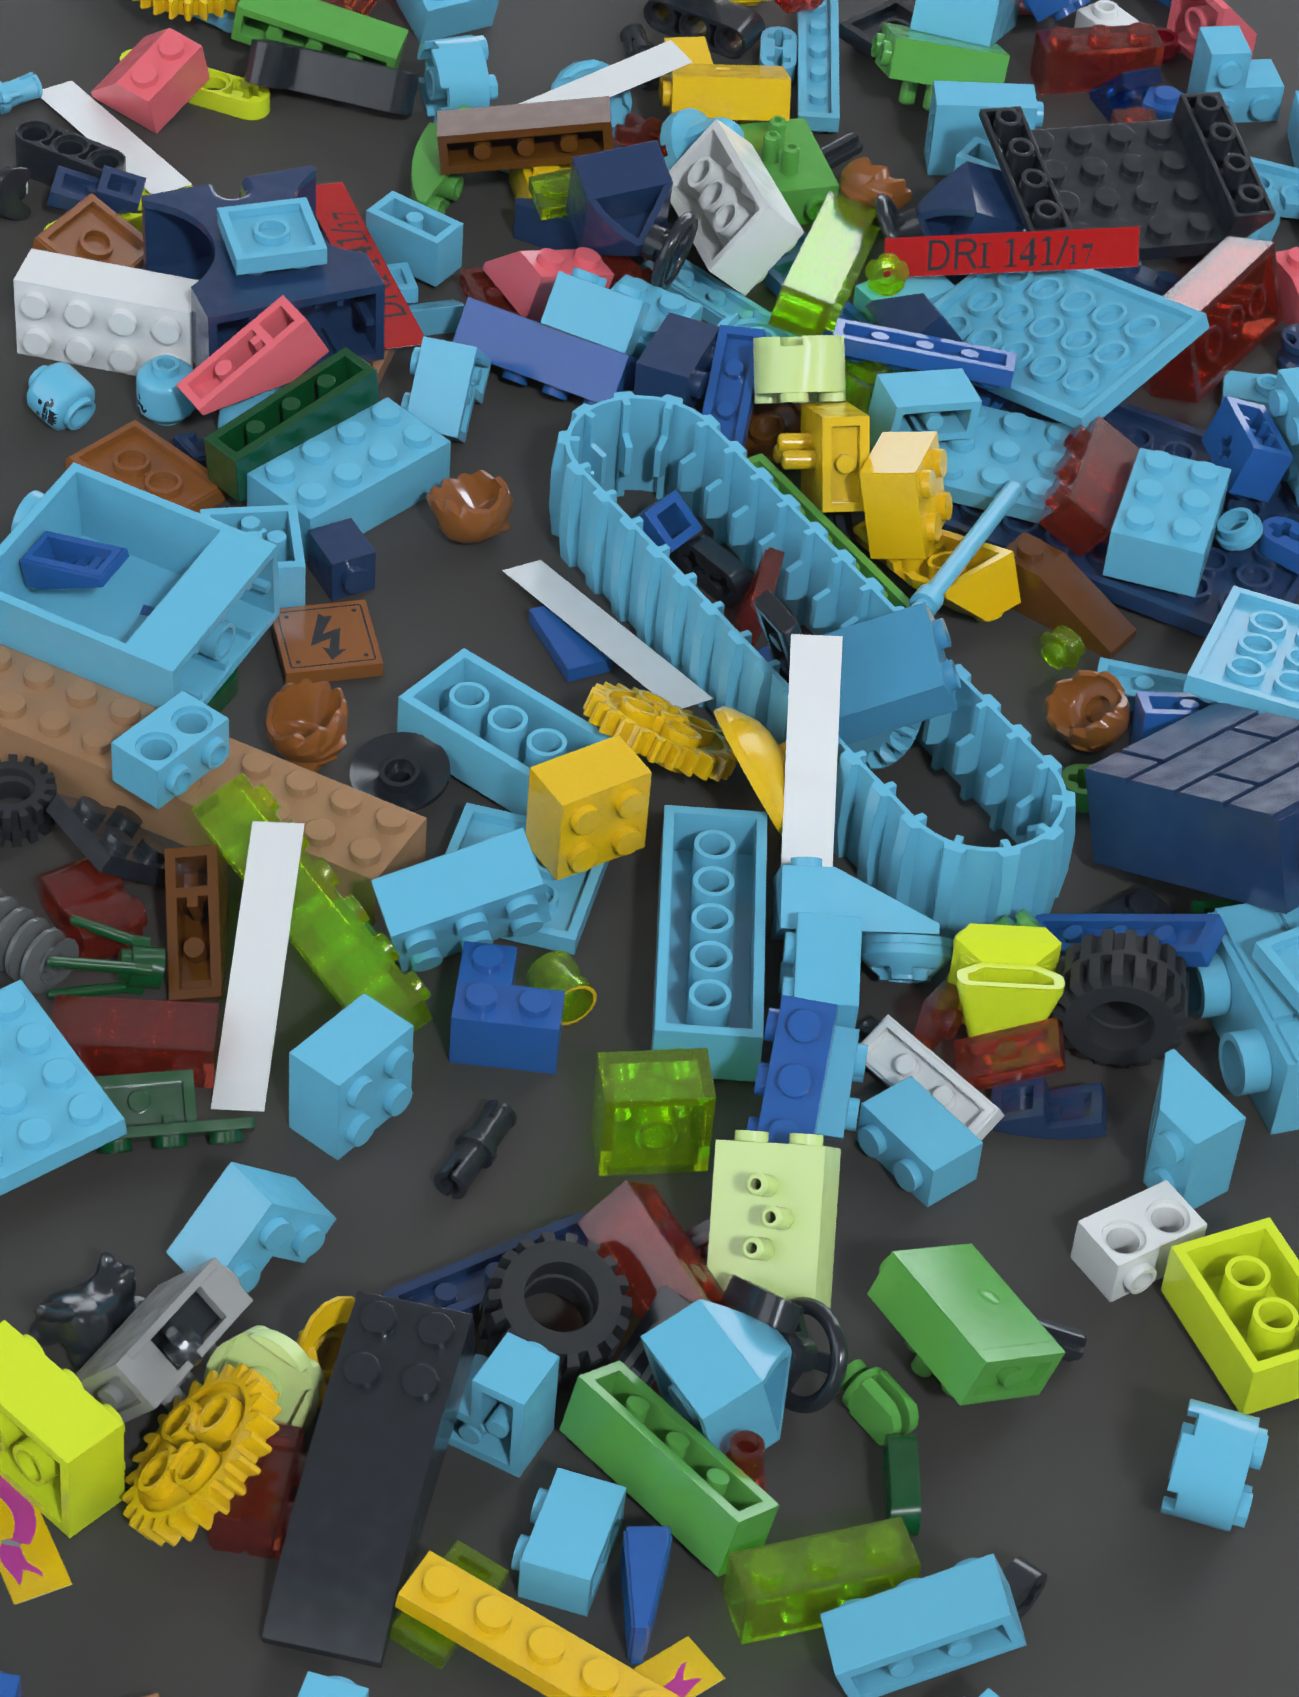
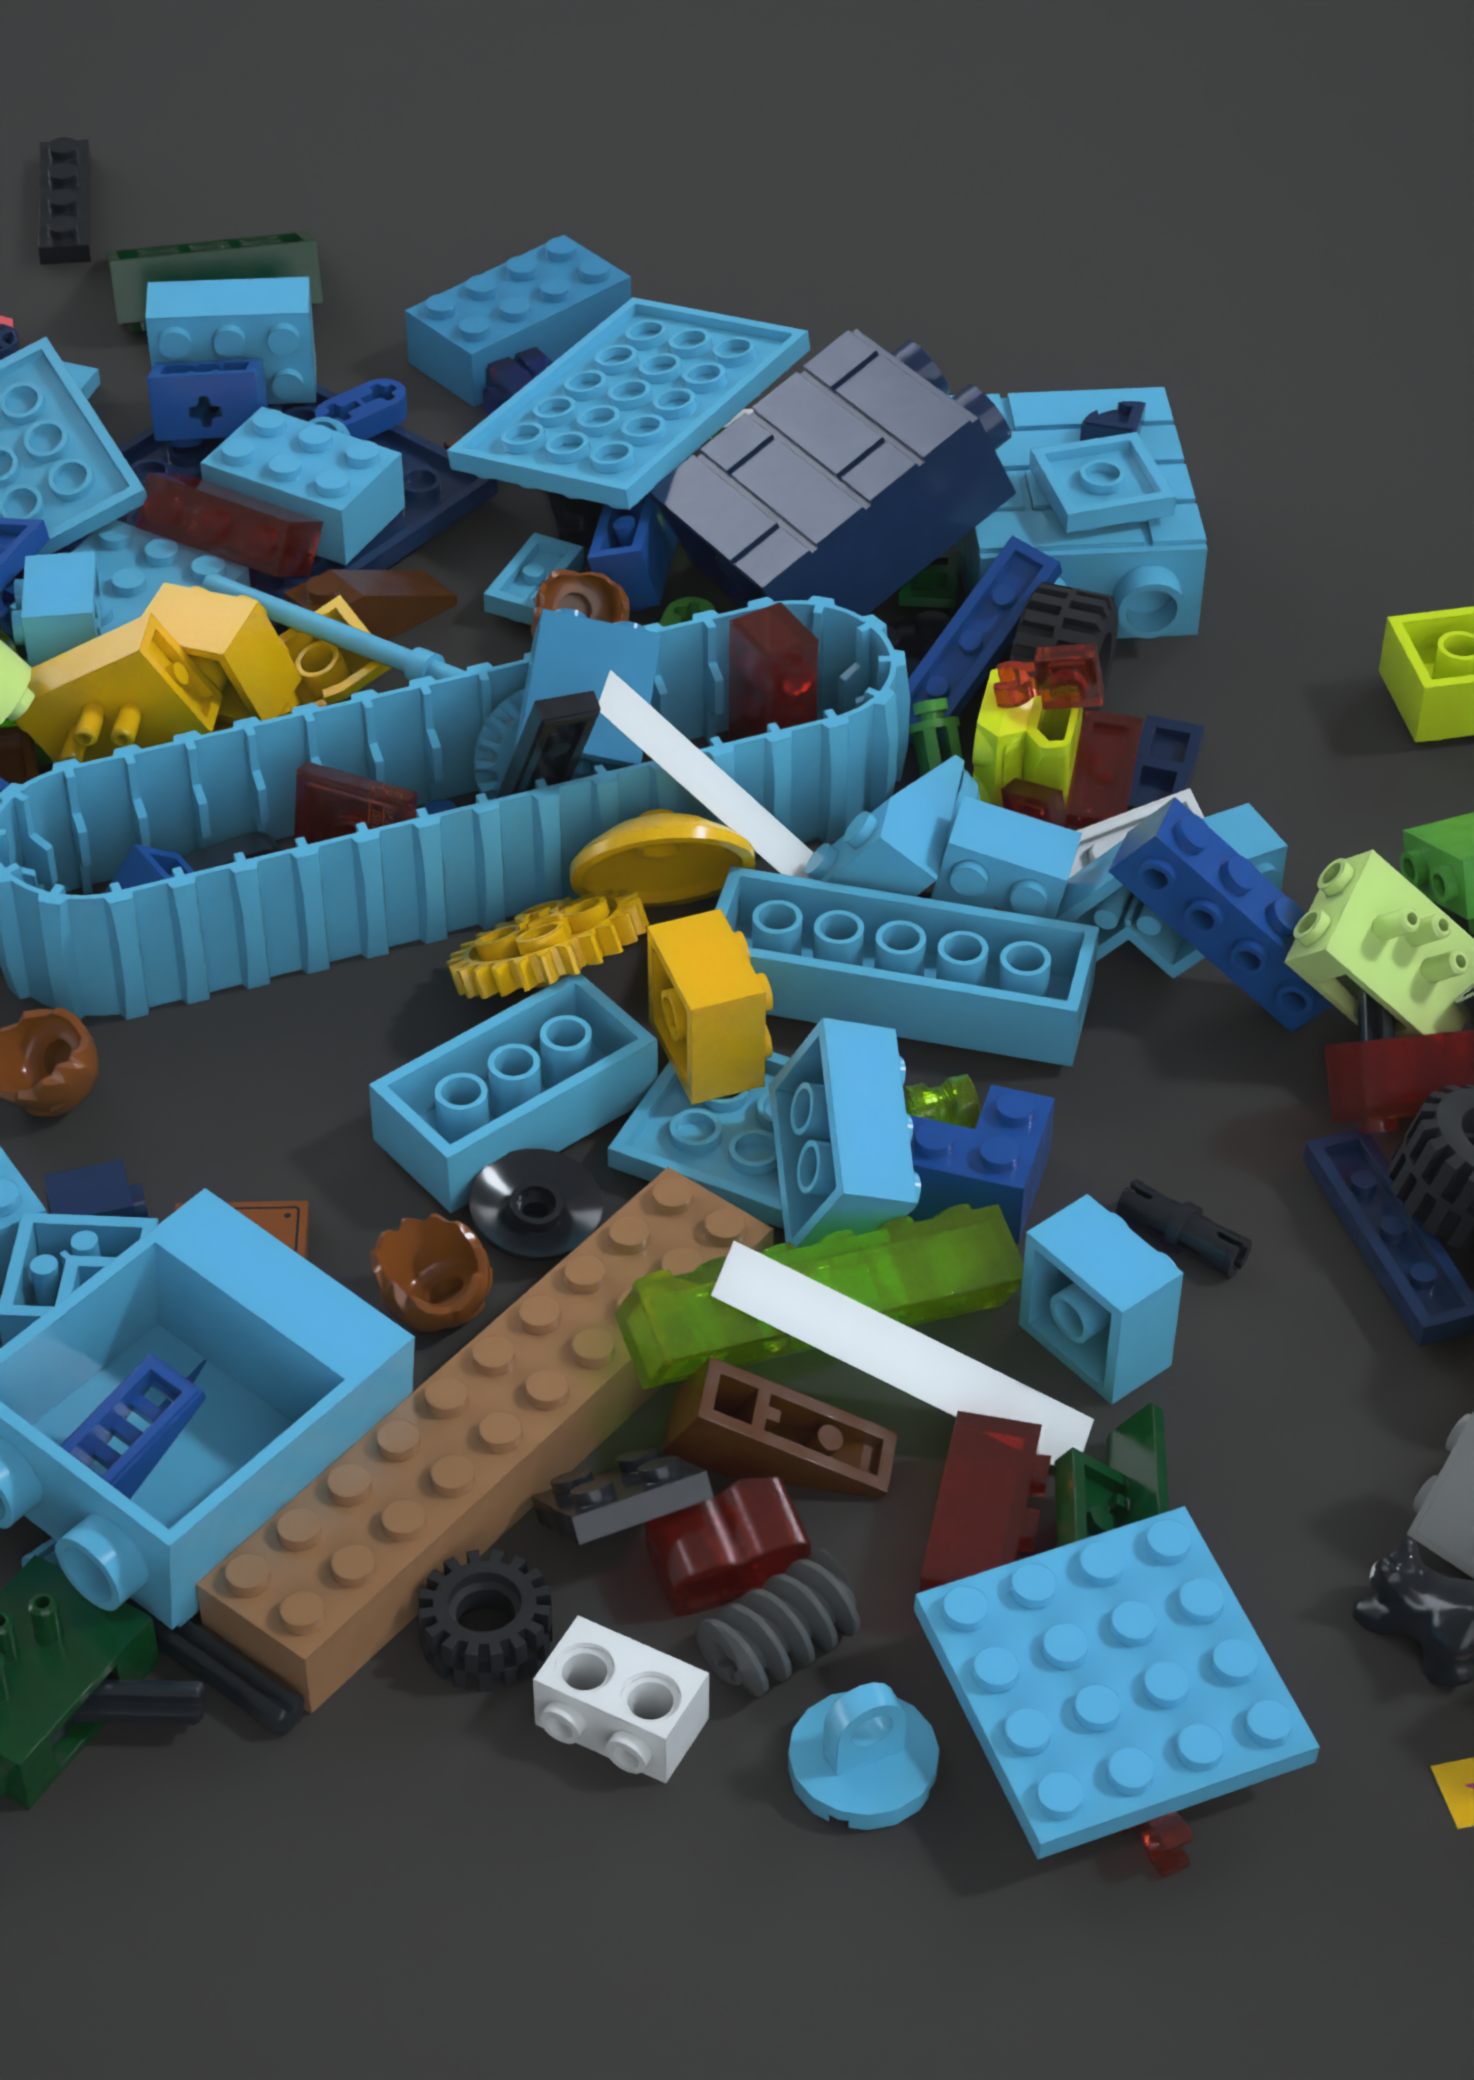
camera: 75 degrees left, 0 degrees up
(137, 967) = (852, 1500): dark green plant -> none
(170, 749) = (534, 1374): medium azure brick -> none
(251, 1219) = (1348, 1425): medium azure brick -> none
(567, 648) = (304, 1026): blue tile -> none
(607, 634) = (317, 983): white sticker -> none
(653, 1111) = (1178, 1045): clear neon green brick -> none
(983, 792) = (771, 672): none -> clear red brick
(1022, 955) = (1060, 674): none -> clear red plate
(1062, 648) = (447, 624): clear neon green plate -> none
(1131, 1241) = (1365, 735): white brick -> none
(1191, 1134) = (1247, 662): medium azure slope -> none

